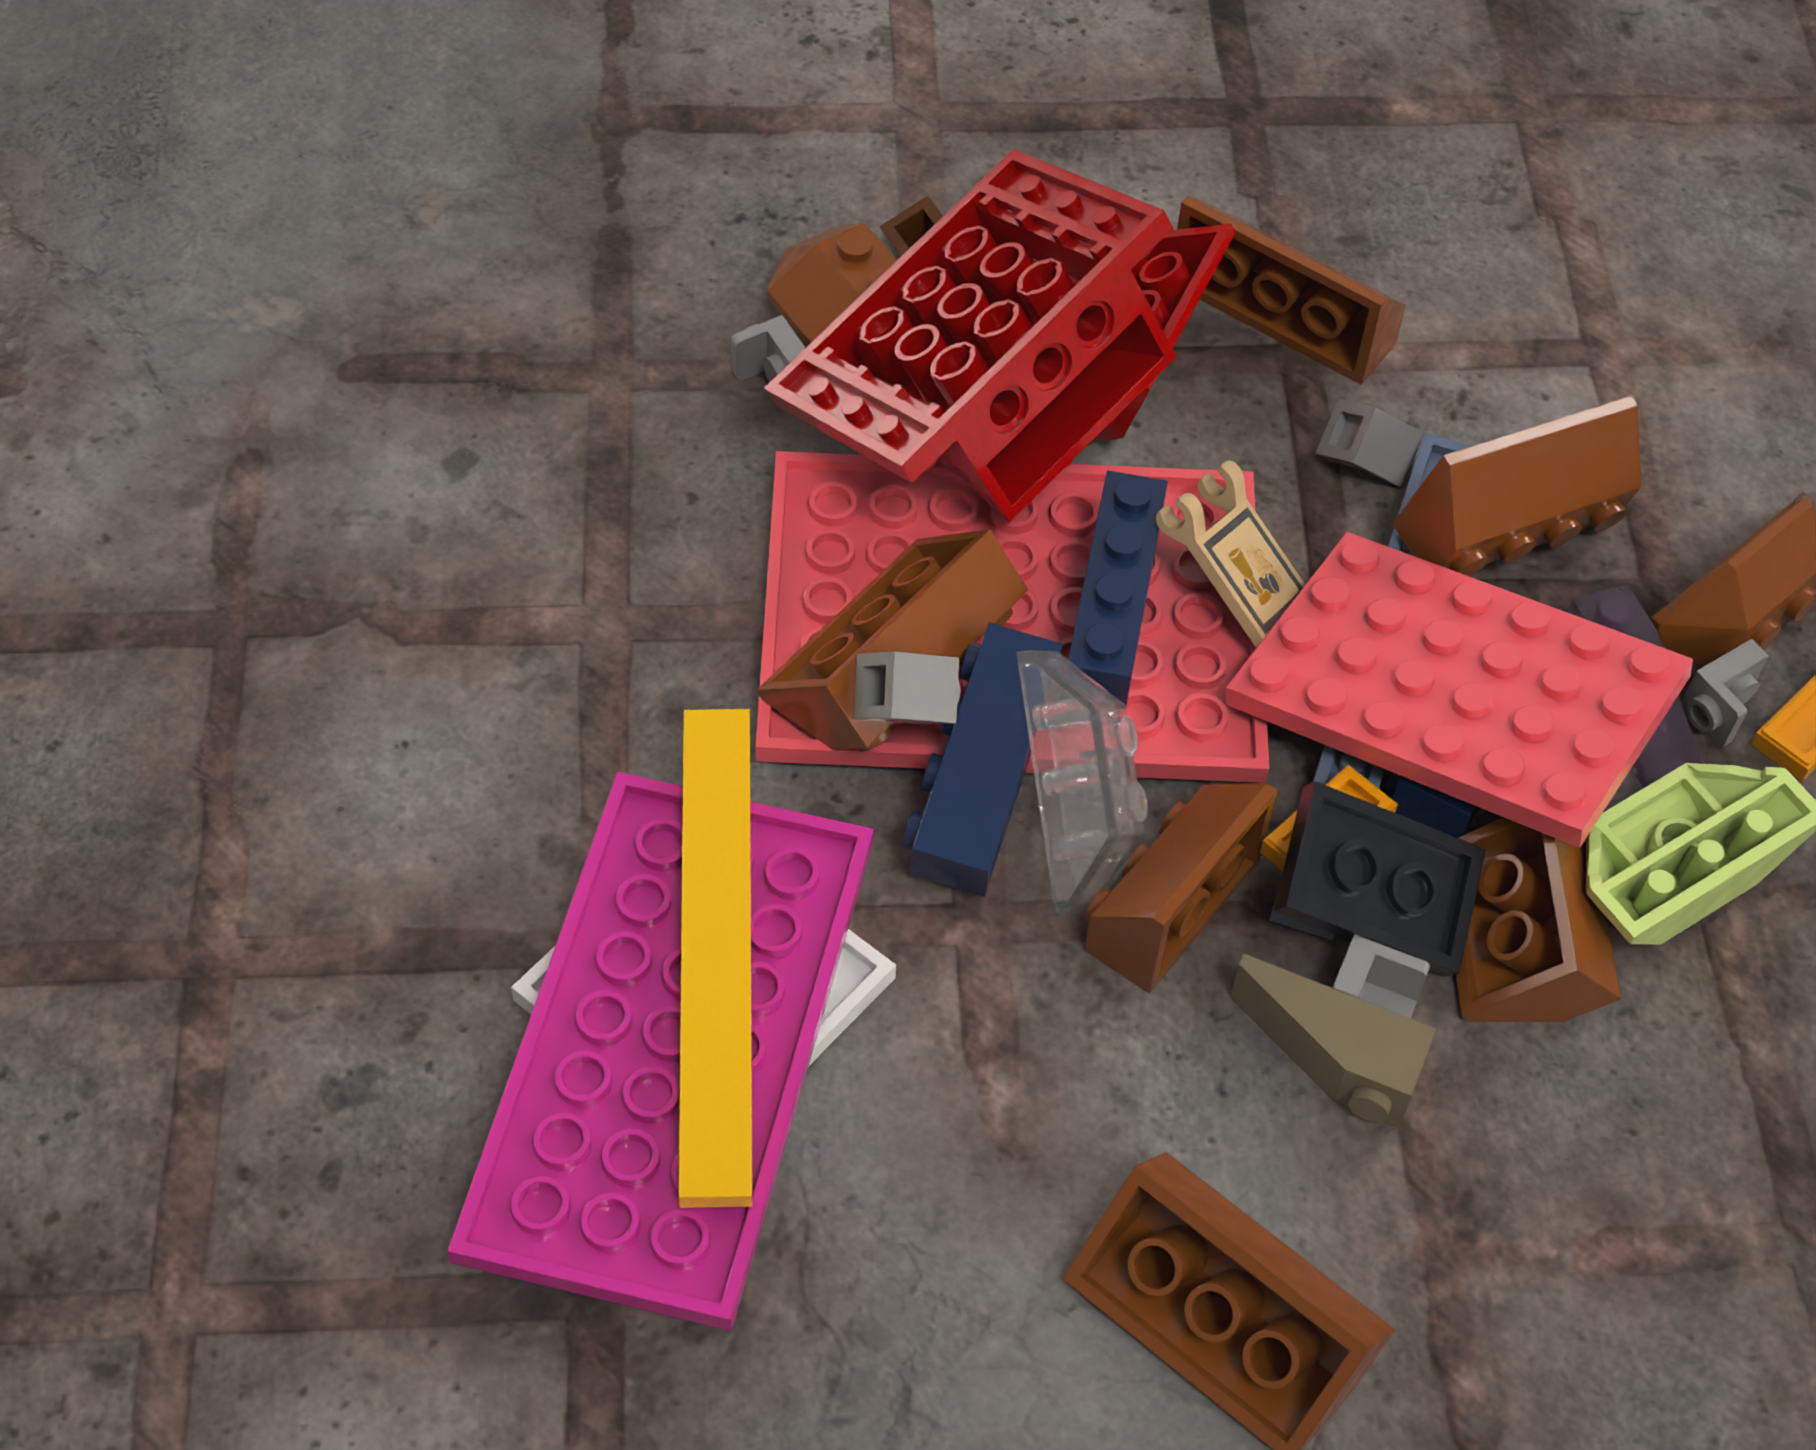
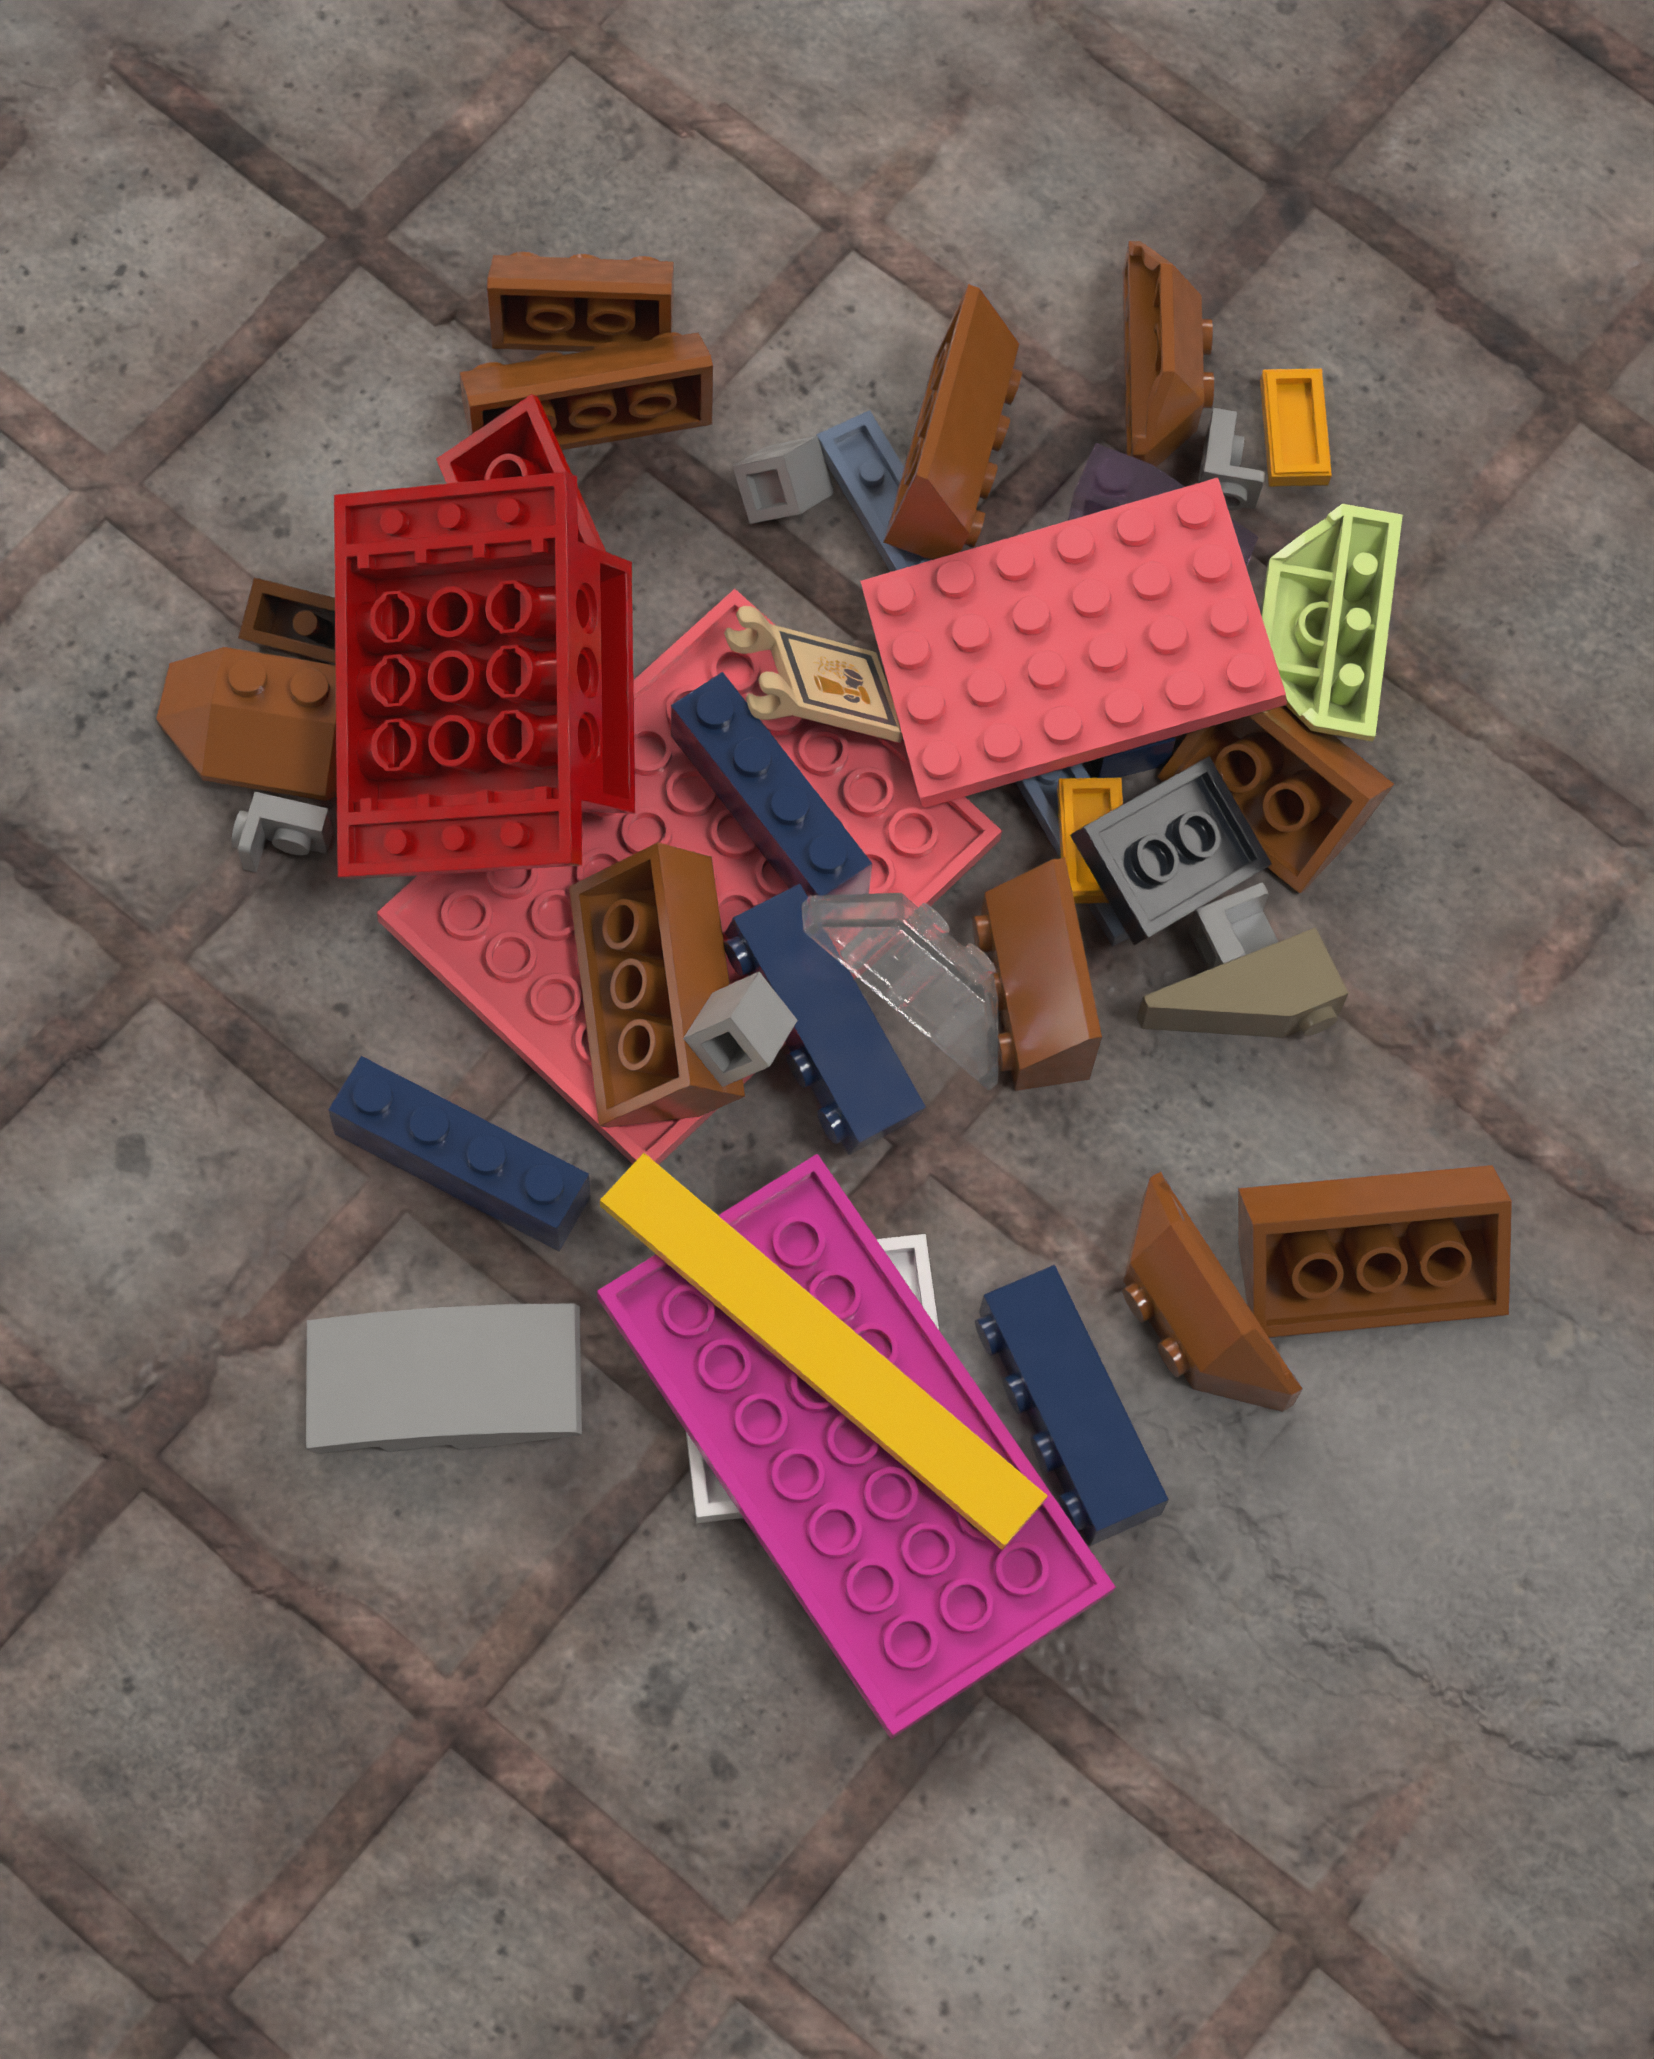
camera: 50 degrees left, 15 degrees up
(467, 748) = (443, 1377): none -> light grey slope
(646, 626) = (460, 1153): none -> dark blue brick
(860, 1181) = (1071, 1406): none -> dark blue brick
(1037, 1205) = (1198, 1310): none -> dark orange wedge
(1343, 230) = (577, 301): none -> dark orange slope

